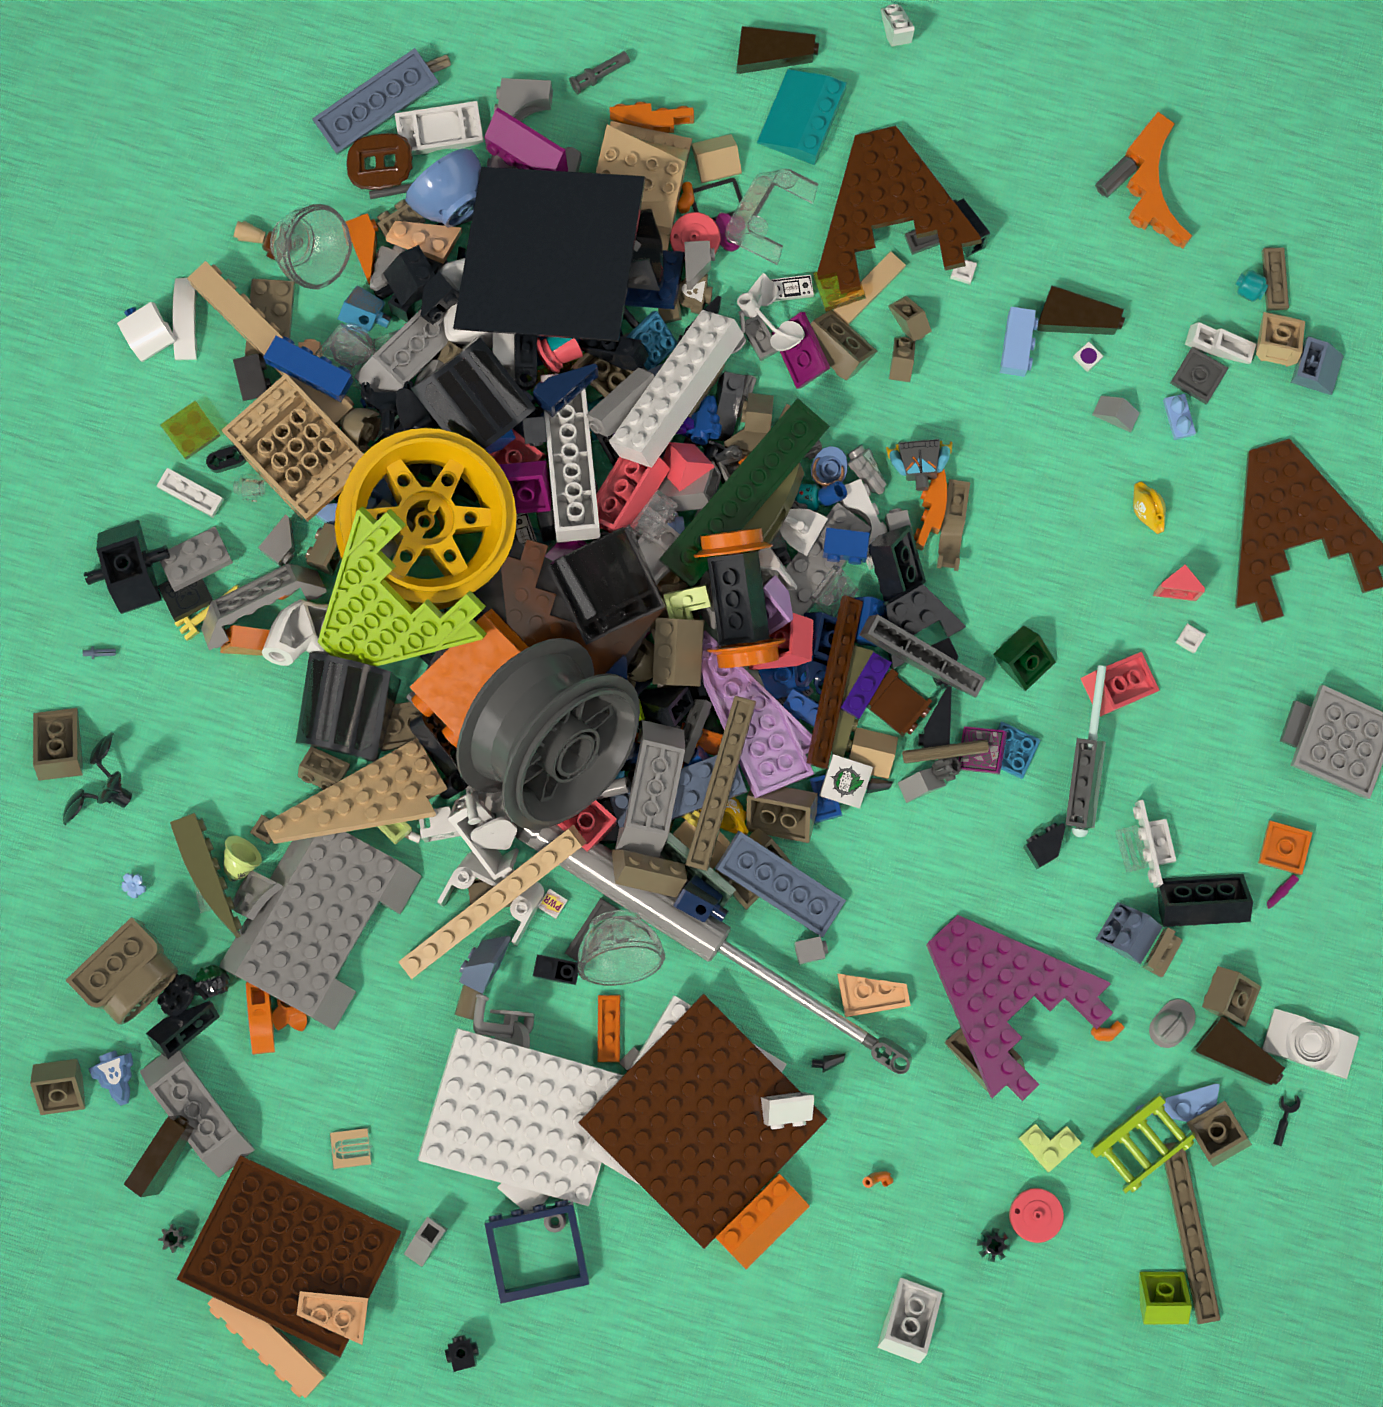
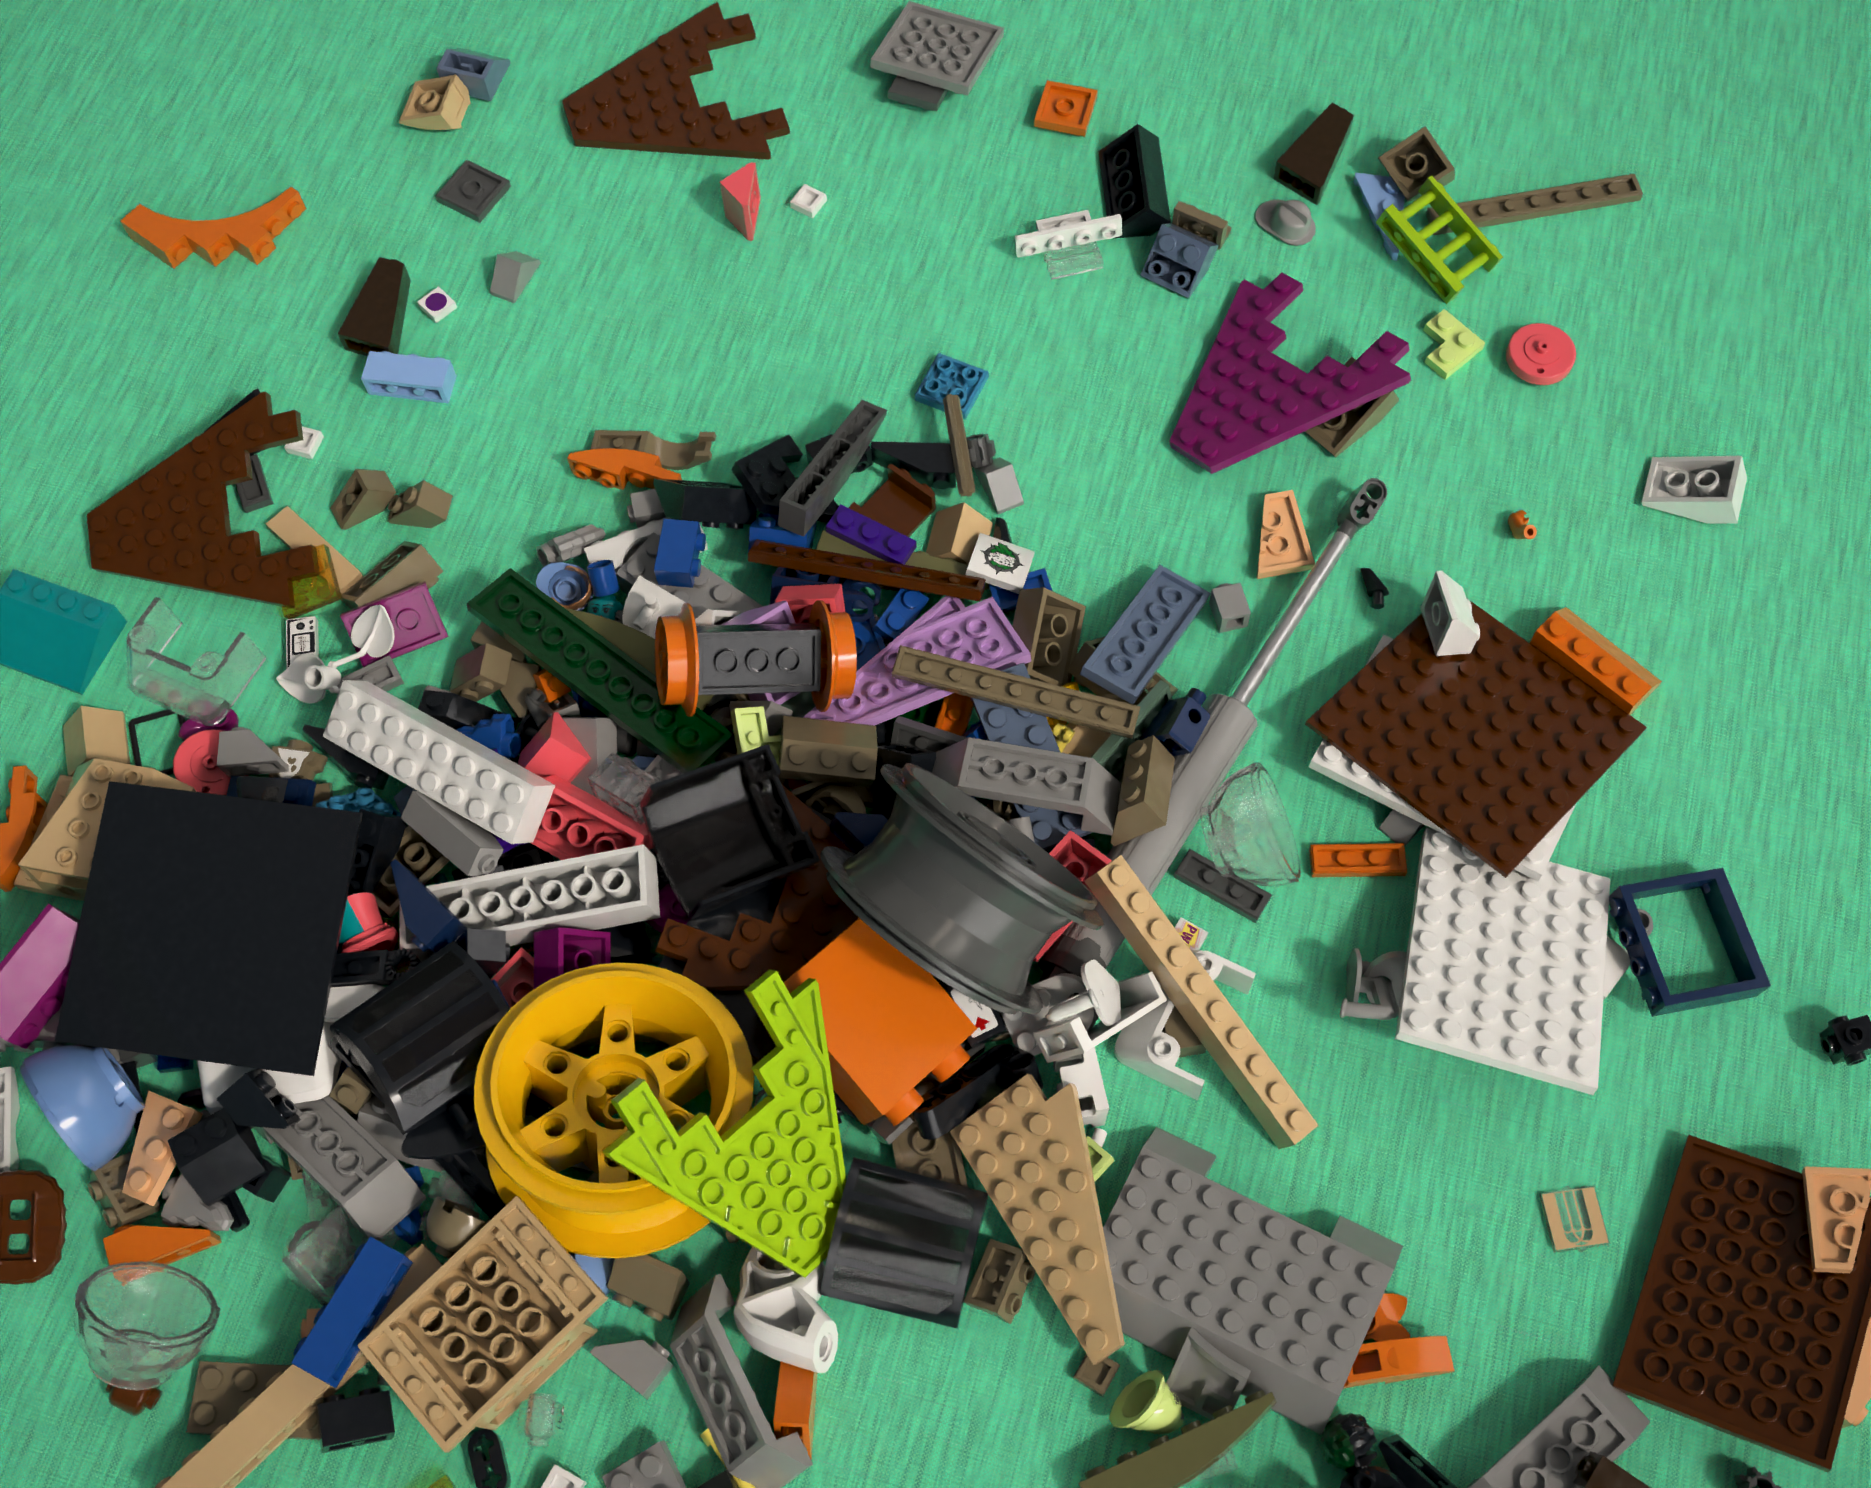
camera: 85 degrees left, 15 degrees down
(247, 232) = (107, 1440): tan cone -> none
(364, 309) = (262, 1237): dark azure torso -> none
(385, 403) = (420, 1185): black axle -> none
(389, 191) = (71, 1197): dark grey bar -> none
(425, 1241) = (1696, 1096): light grey slope -> none
(466, 1003) = (1336, 1046): dark tan piece -> none
(483, 963) = (1285, 1017): sand blue slope -> none
(555, 970) = (1284, 926): black slope -> none
(831, 589) = (739, 577): clear plate -> none
(920, 460) = (563, 478): torso -> none
(984, 762) = (972, 406): tile -> none
(988, 1240) = (1585, 397): black piece -> none
(1024, 657) = (830, 368): dark green slope -> none
(1046, 847) = (1076, 343): black slope -> none
(1087, 769) = (977, 292): dark grey piece -> none
(1107, 1034) = (1307, 281): orange arm -> none
(1116, 176) = (200, 272): dark grey axle -> none
(1123, 684) = (868, 270): coral slope -> none
(1149, 507) = (638, 238): yellow hat -> none
(1164, 1298) = (1619, 224): lime slope -> none
(1179, 416) = (524, 210): light blue tile -> none
(1220, 343) = (433, 167): white slope -> none
(1231, 996) = (1247, 160): dark tan slope -> none
(1251, 286) = (364, 132): teal head -> none
(1275, 273) = (357, 115): dark tan tile -> none
(1282, 891) = (1116, 113): magenta piece -> none
(1283, 1123) = (1394, 115): black piece -> none
(1310, 1043) = (1295, 90): white slope -> none

